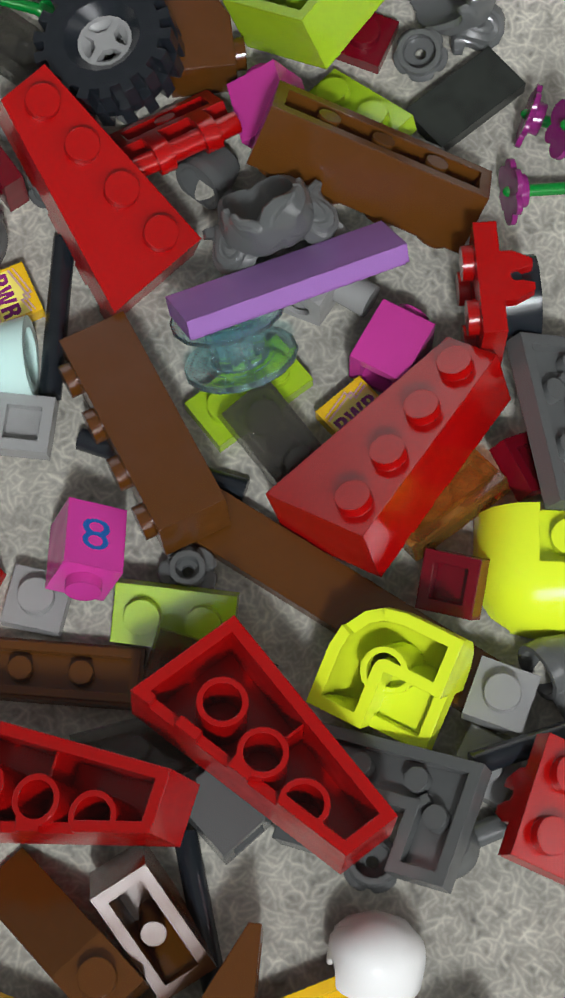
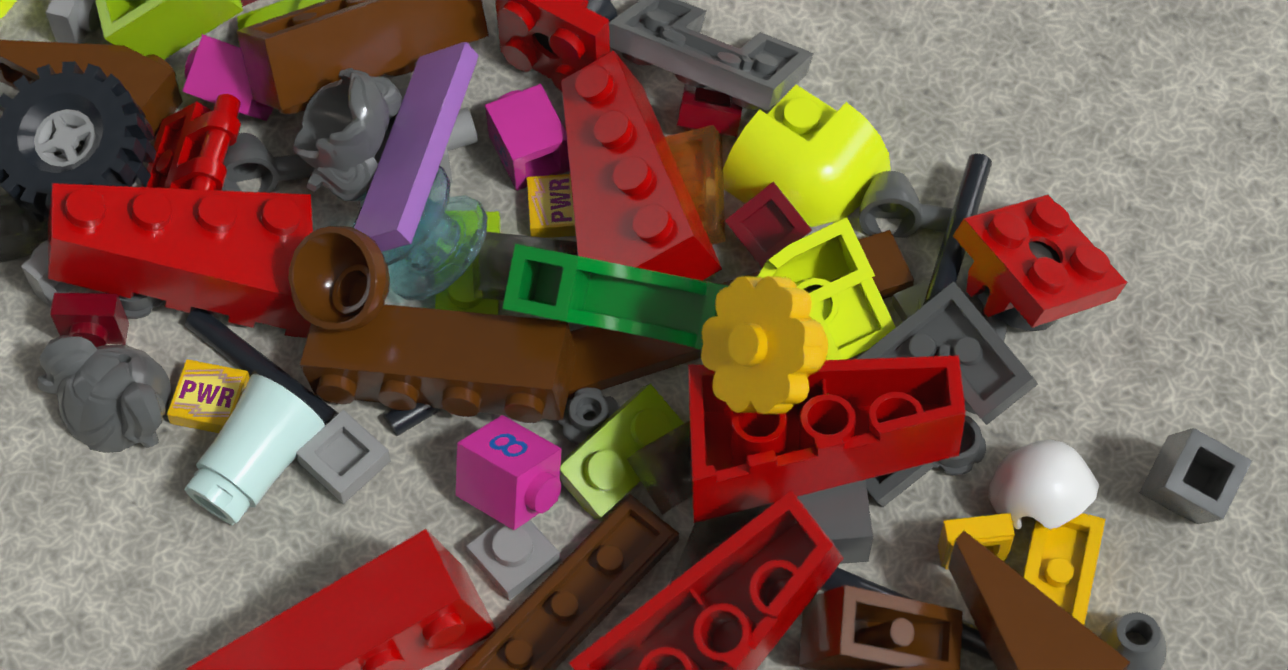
camera: 55 degrees left, 10 degrees down
(129, 314) = (338, 278): none -> reddish brown piece
(268, 663) = (763, 345): none -> yellow plant
(291, 937) = (991, 531): none -> yellow tile
(297, 602) = (609, 295): none -> green arch
(500, 697) = (896, 254): light grey plate -> none

